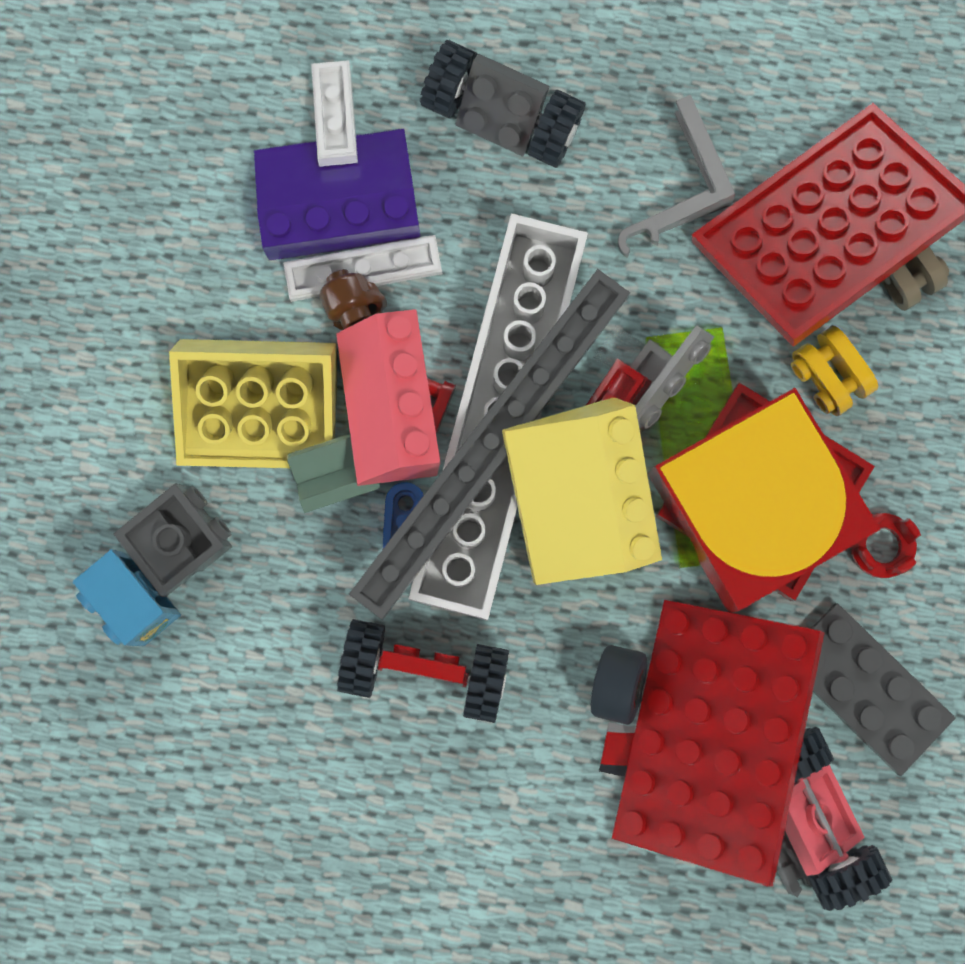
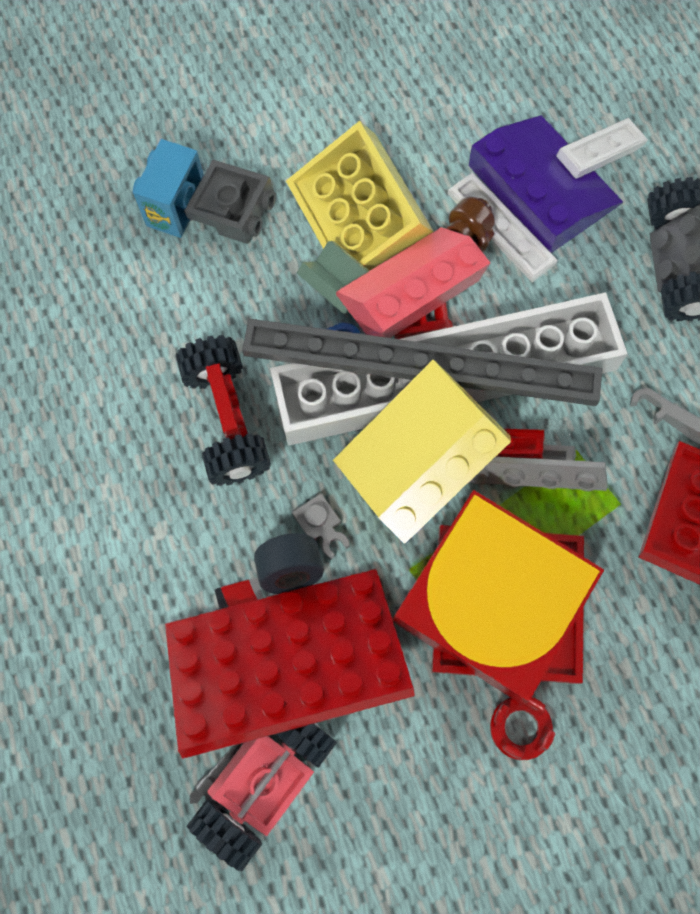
camera: 65 degrees right, 10 degrees down
(584, 630) = (319, 521): none -> light grey plate
(813, 365) = (621, 617): yellow brick -> none
(875, 693) = (393, 780): dark grey plate -> none

